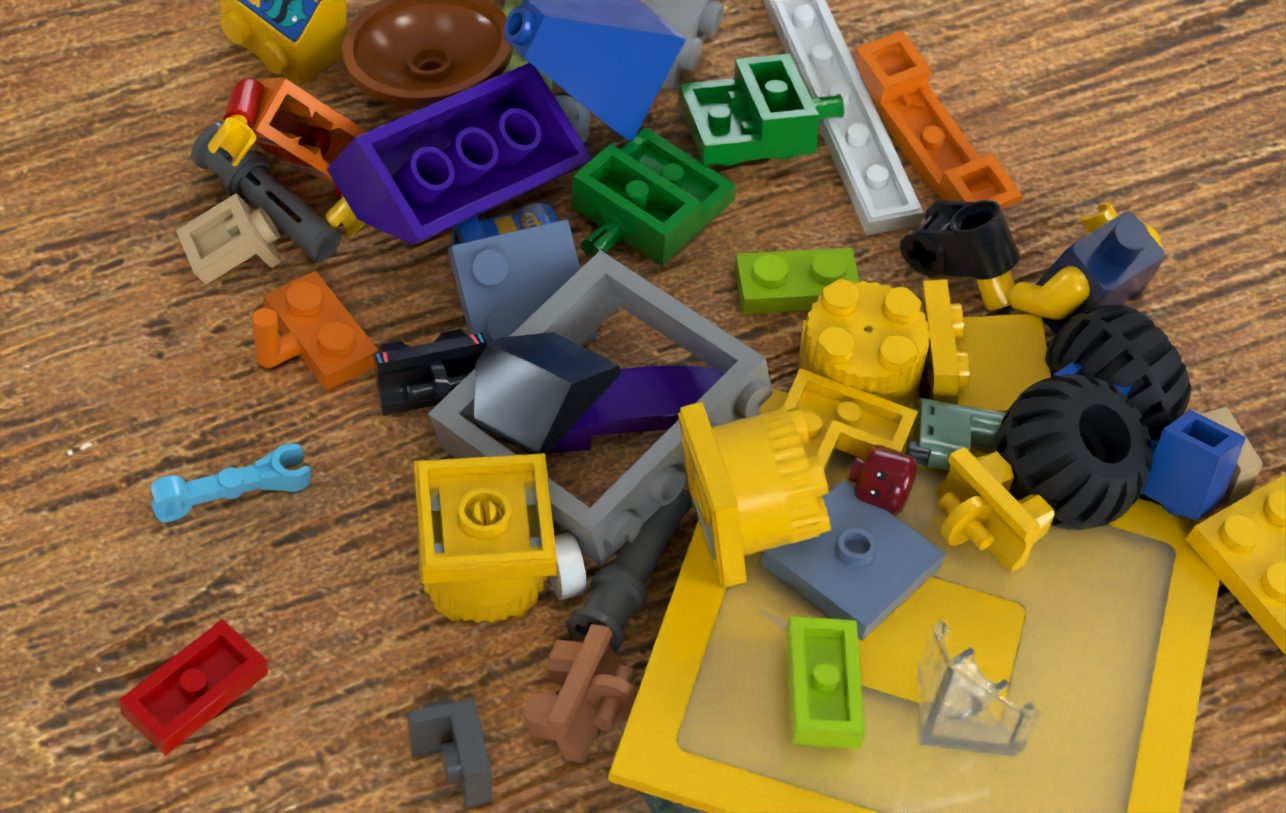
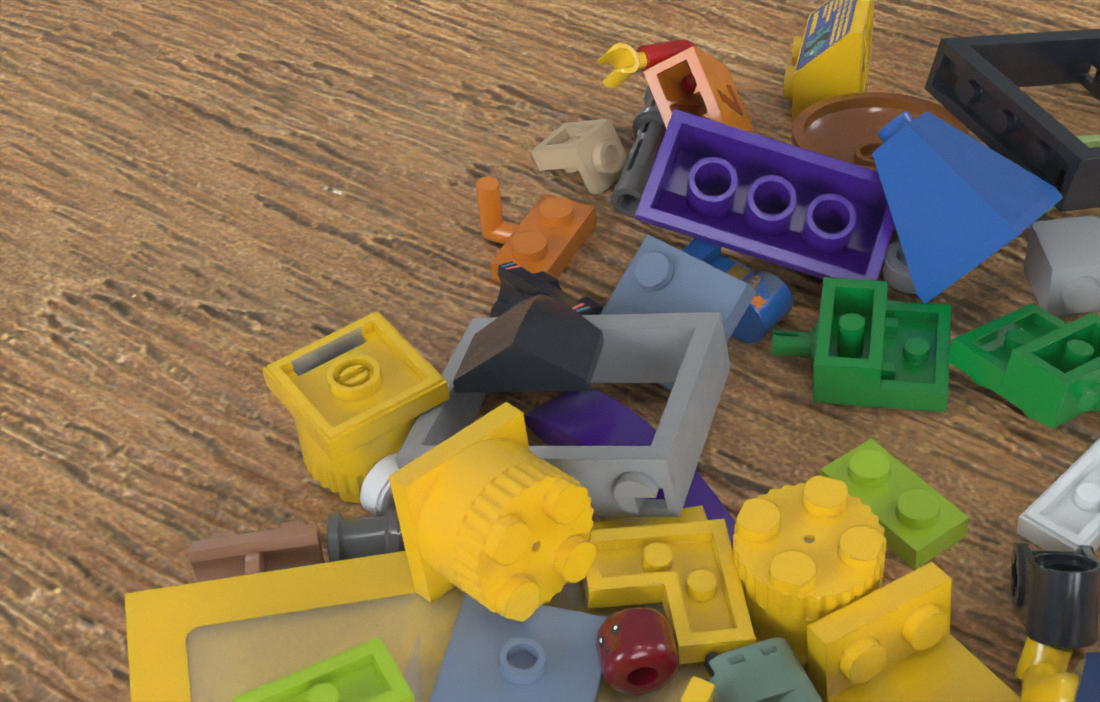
camera: 70 degrees right, 10 degrees down
(176, 497) = (372, 282): medium azure piece -> none
(193, 687) = (129, 339): red plate -> none
(458, 734) = (150, 516): dark grey bracket -> none

